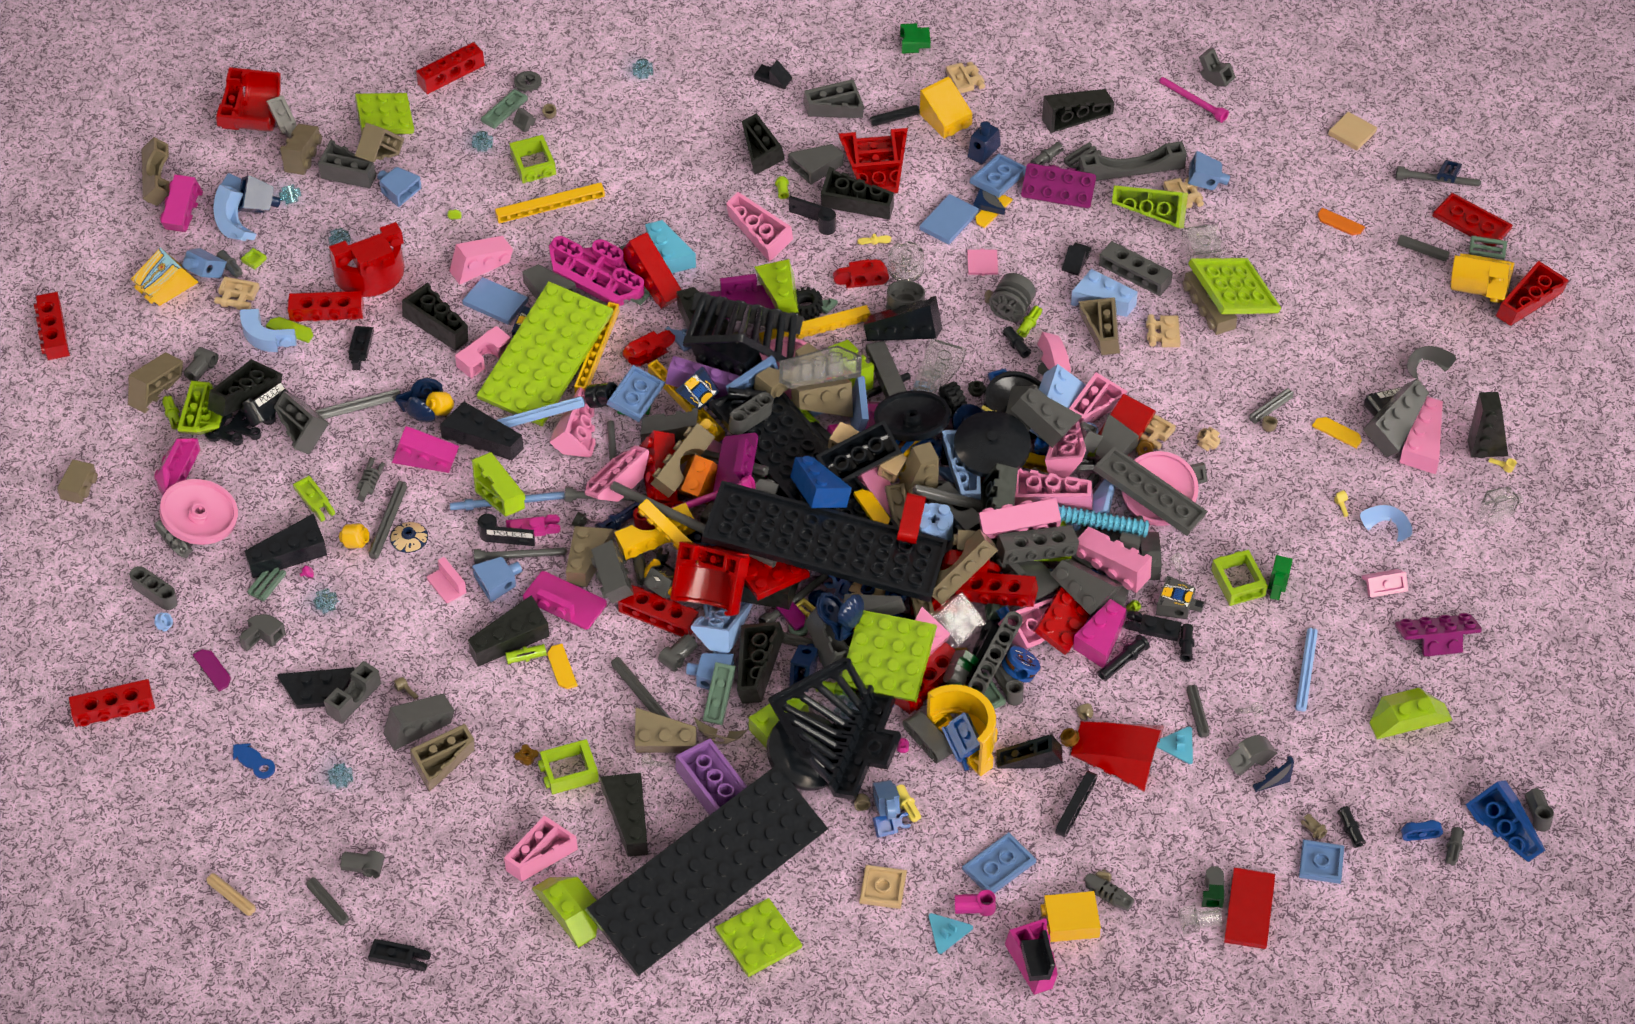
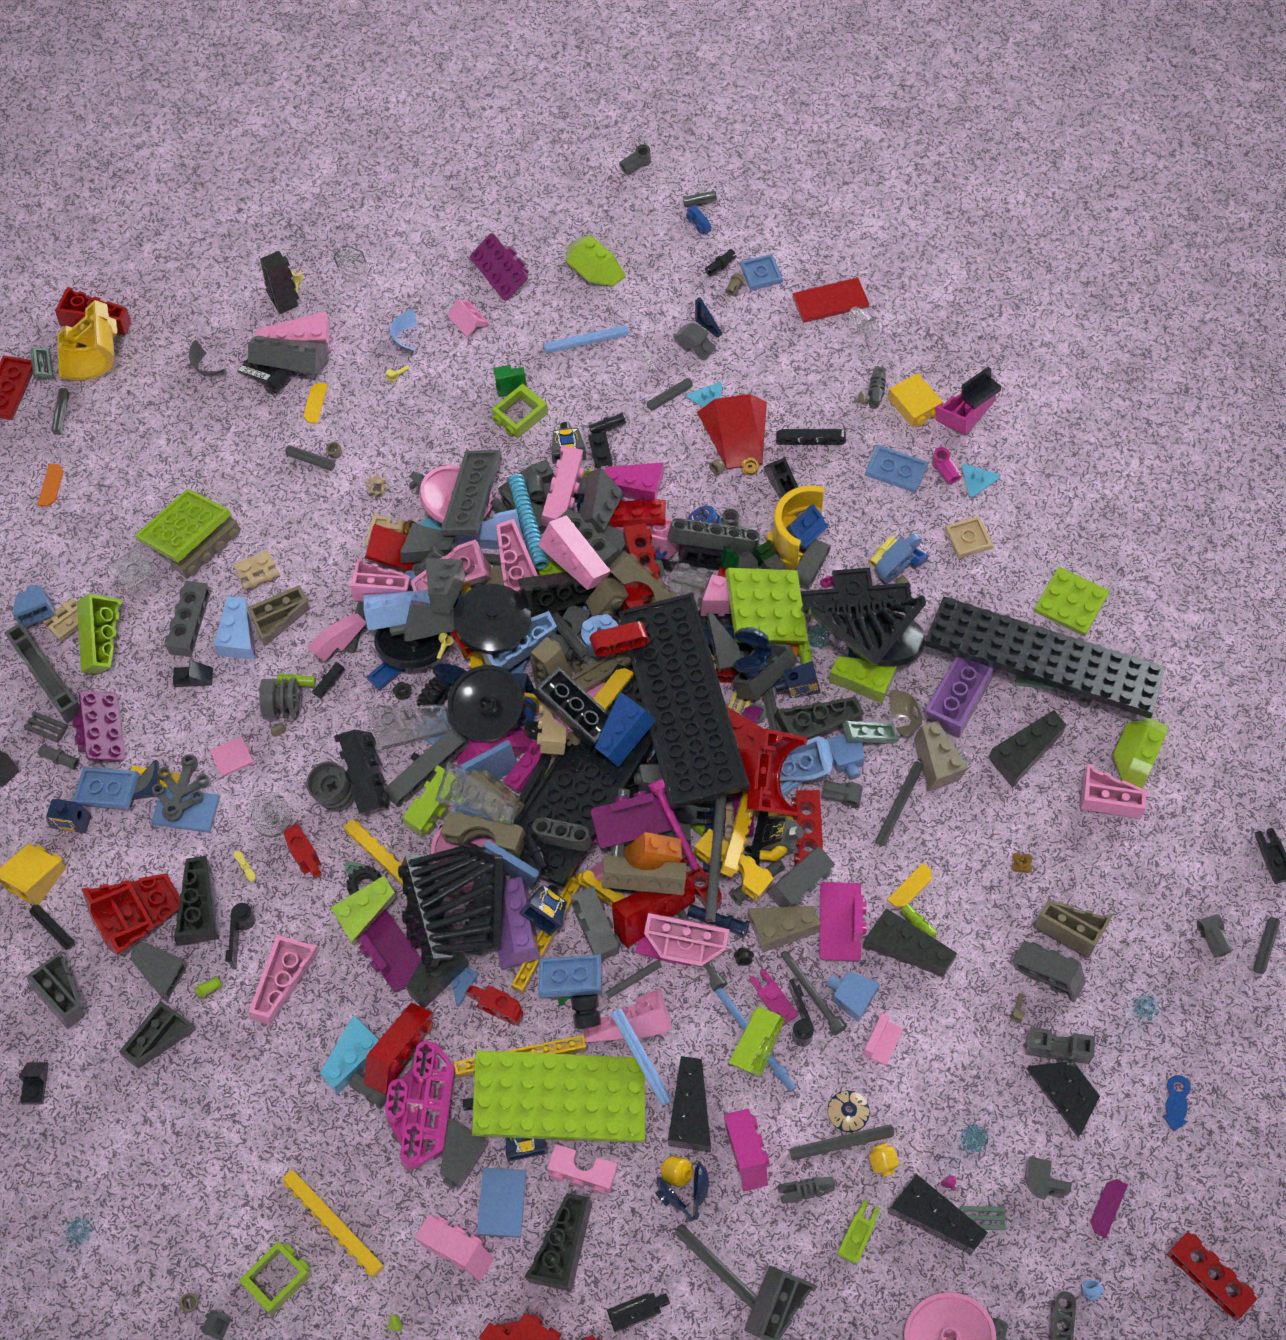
camera: 115 degrees left, 10 degrees up
(570, 781) = (990, 819): lime window -> none
(968, 216) = (180, 790): none -> dark grey plant
(1129, 653) = (640, 457): black pin -> none
(1215, 888) = (830, 323): leg -> none
(1504, 814) = (652, 179): blue wedge -> none

